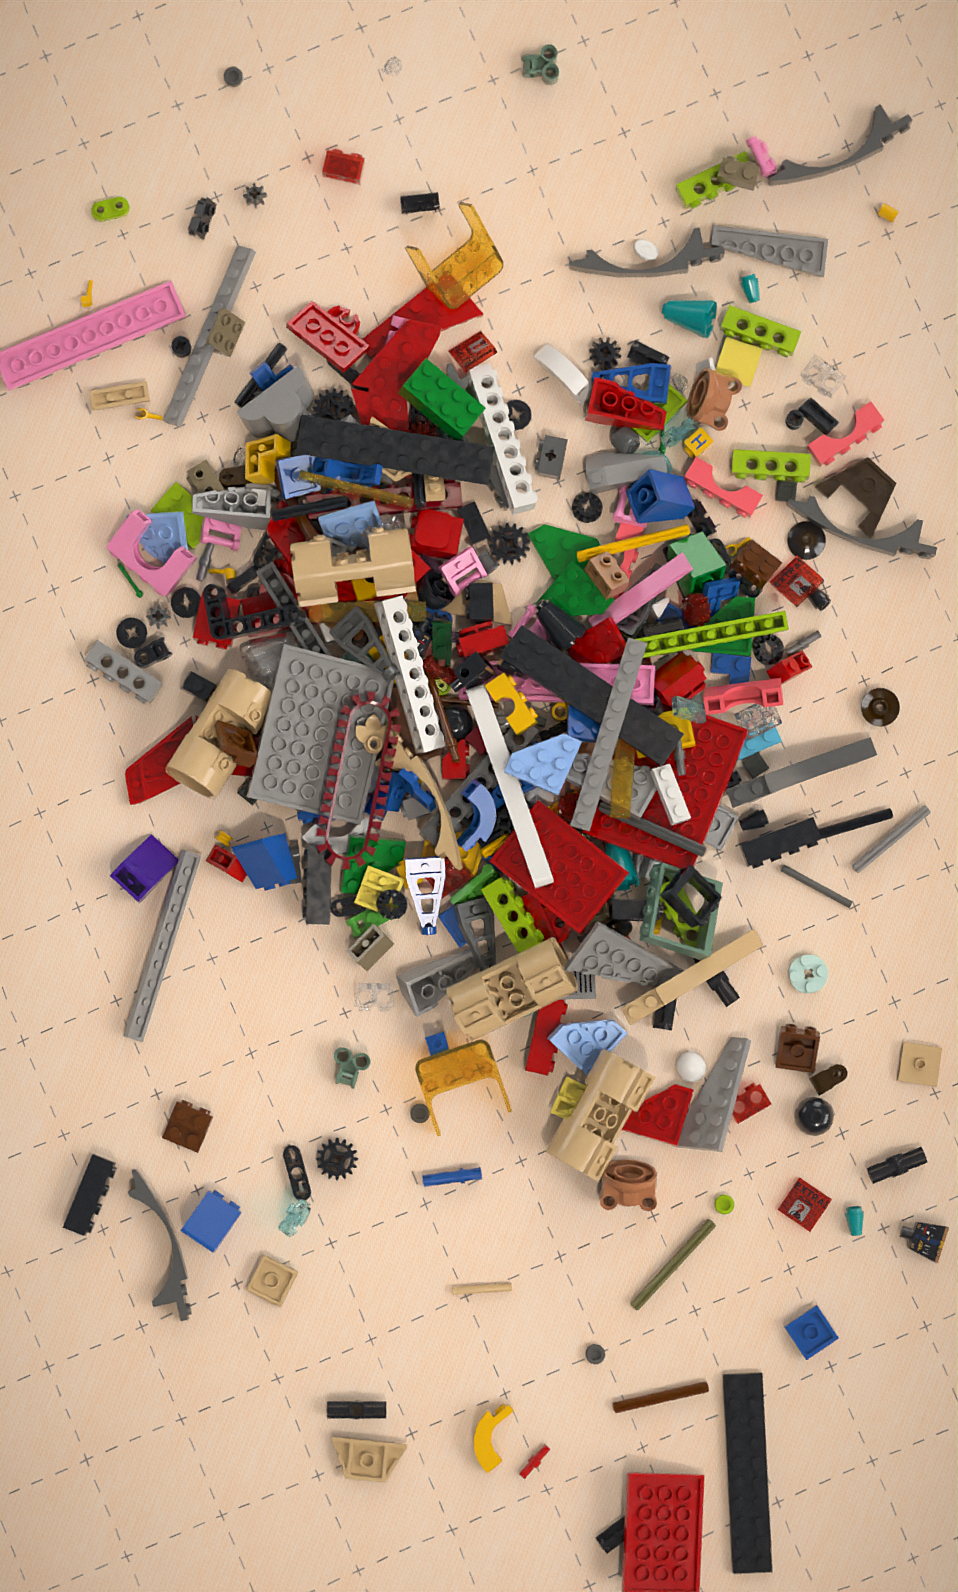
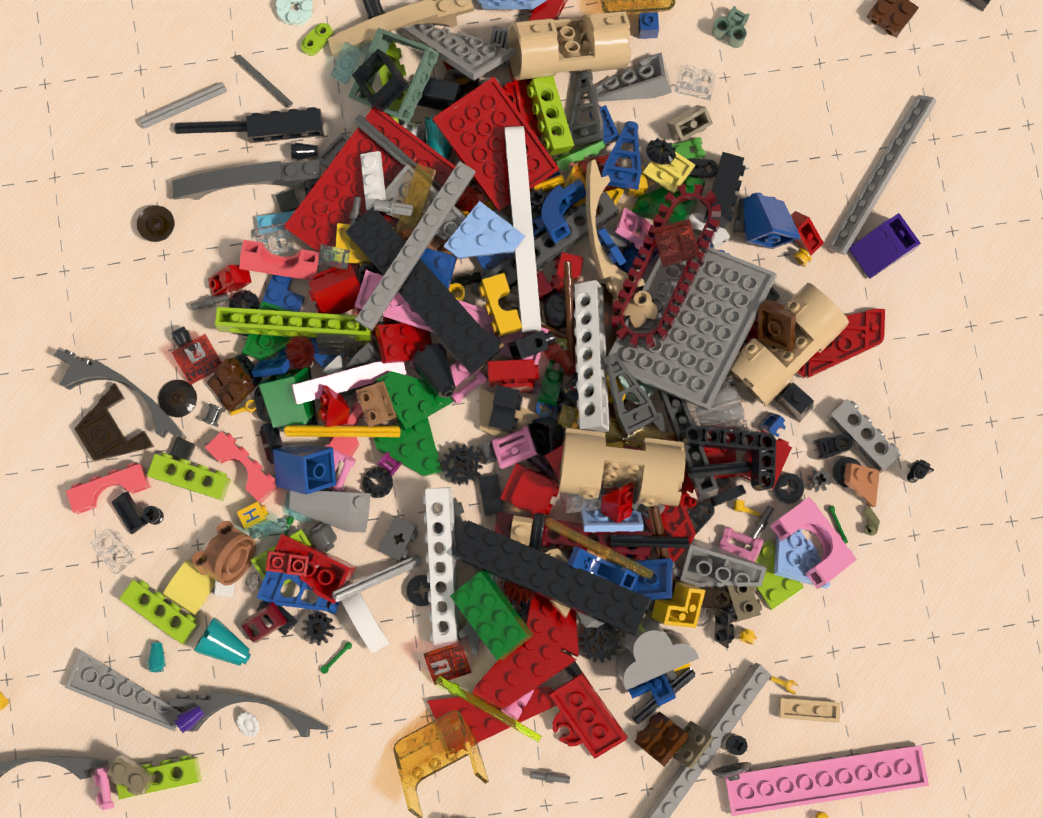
camera: 165 degrees left, 5 degrees down
(64, 647) = (918, 470): none -> black hinge
(97, 590) = (872, 522): none -> olive arm
(115, 625) = (863, 482): none -> nougat wing
(180, 321) = (732, 771): none -> dark grey dish
(194, 450) = (747, 636): none -> yellow plate
(216, 661) = (773, 423): none -> blue tile
(218, 453) = (723, 629): none -> black hinge
(254, 333) = (661, 738): none -> reddish brown plate
(259, 590) = (719, 469): none -> black axle
(348, 536) = (618, 503): none -> red slope
(349, 274) = (550, 777): none -> flat silver bar
(353, 802) = (676, 242): none -> clear red tile
(405, 821) = (628, 225): none -> bright pink plate
(460, 329) = (455, 689): none -> clear neon green bar
(561, 412) = (376, 578): none -> light grey axle
(579, 526) = (384, 464): none -> magenta bush
(588, 319) = (324, 669): none -> green hinge
(642, 768) = (393, 207): none -> light grey axle
(647, 560) = (333, 408): none -> red slope
(650, 402) = (286, 563): none -> red slope
(666, 347) = (274, 614): none -> dark red piece
(700, 237) = (188, 719): none -> dark purple cone
(736, 922) = (346, 63): none -> clear light blue plate
(765, 531) = (213, 415): none -> dark grey bush
(775, 944) = (319, 40): none -> lime plate

